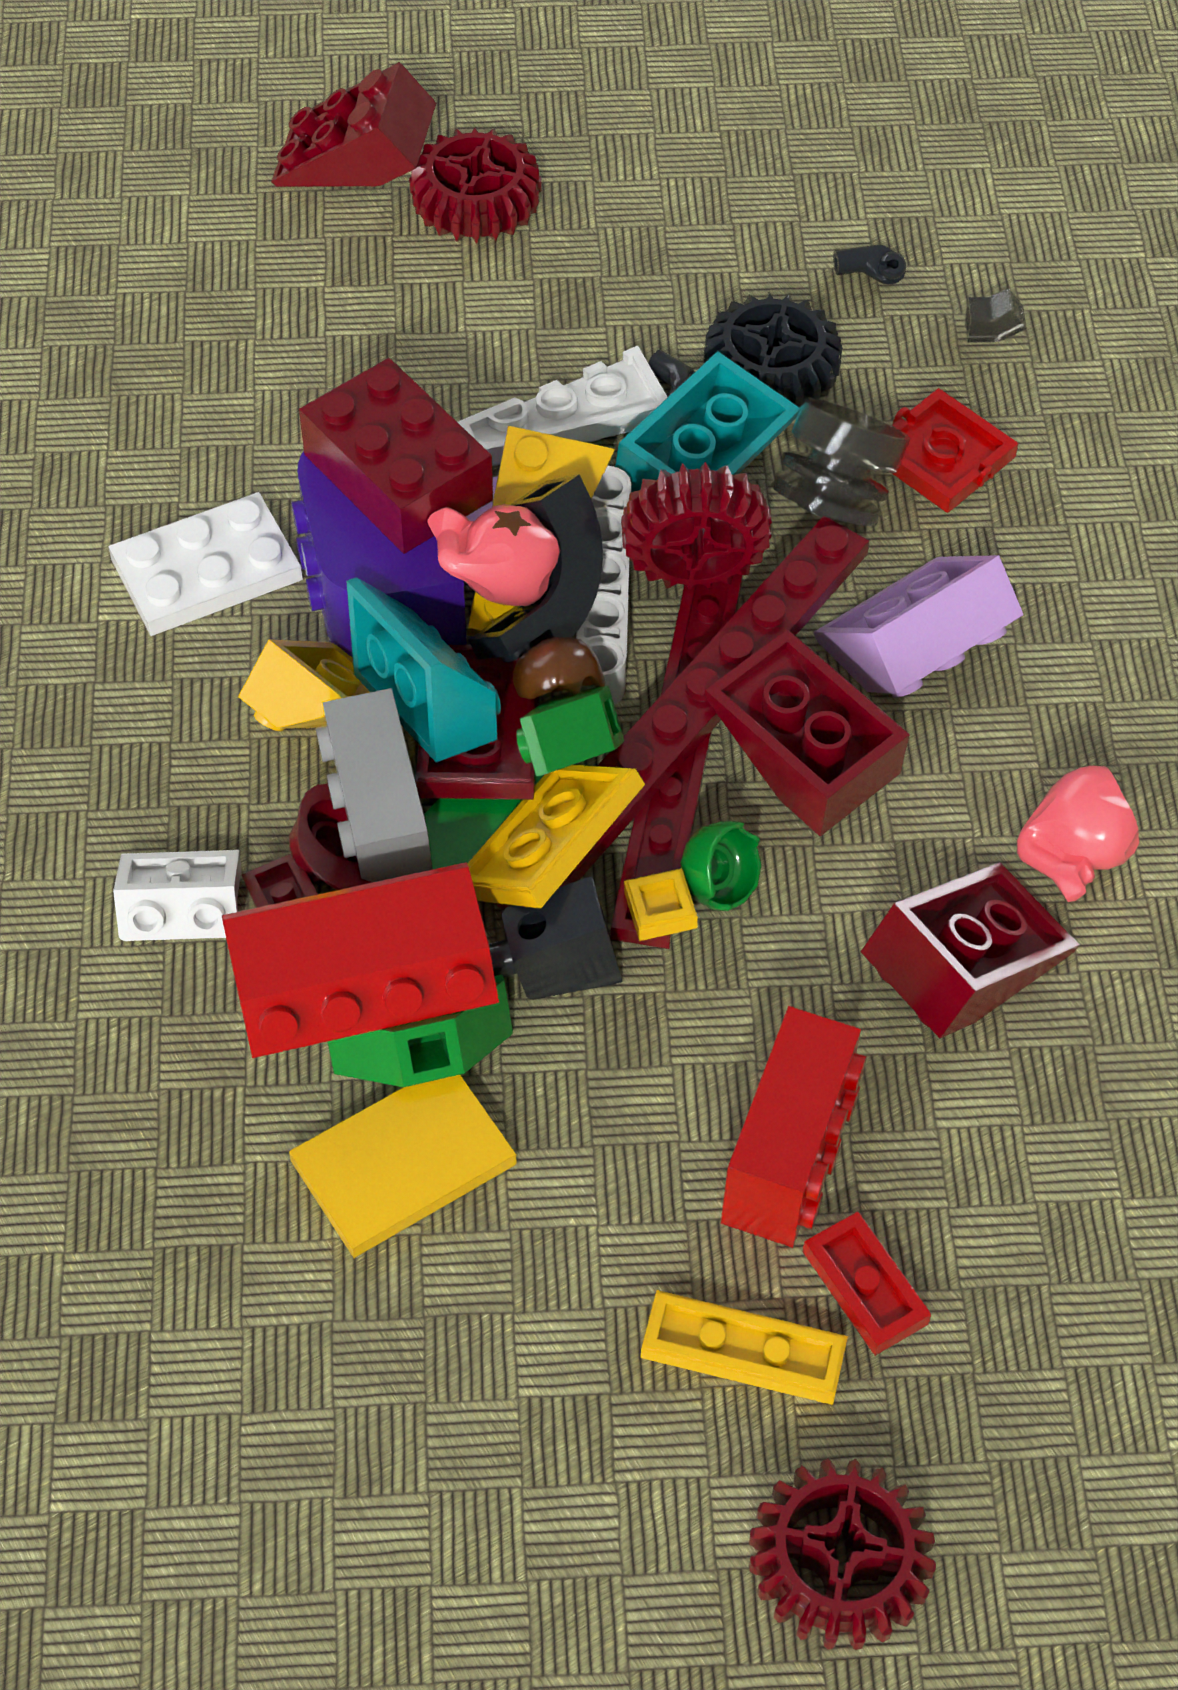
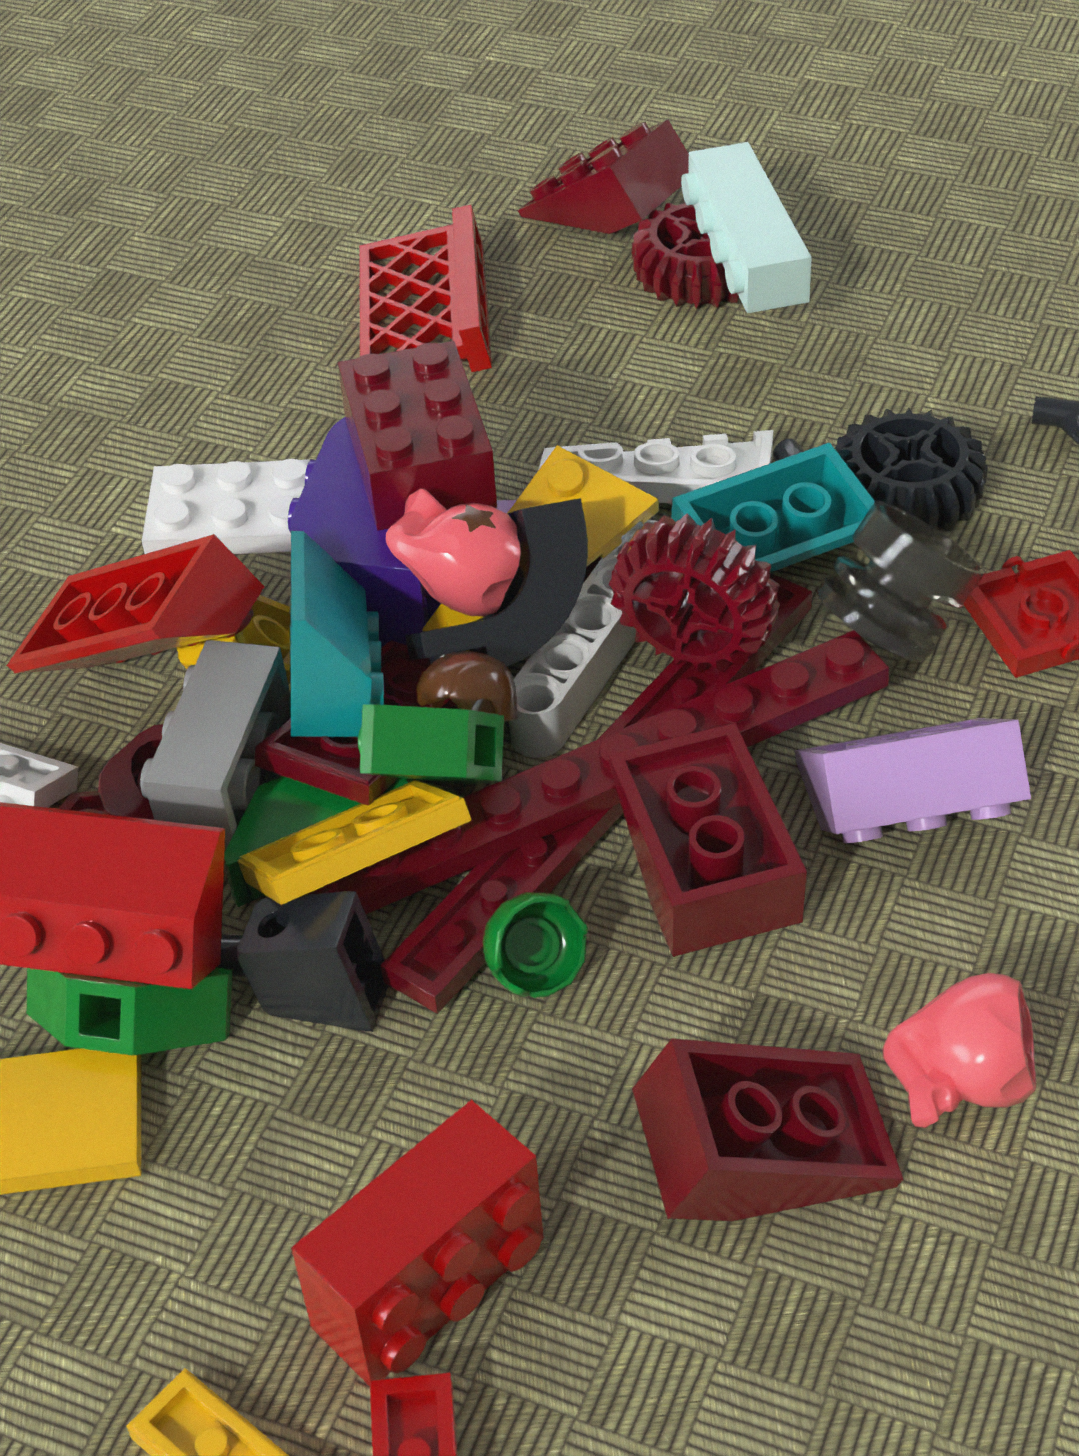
camera: 30 degrees right, 10 degrees down
(233, 694) = (142, 608): none -> red slope
(287, 284) = (461, 290): none -> red fence
(526, 154) = (747, 228): none -> light aqua brick
(660, 904) = (441, 959): yellow tile -> none

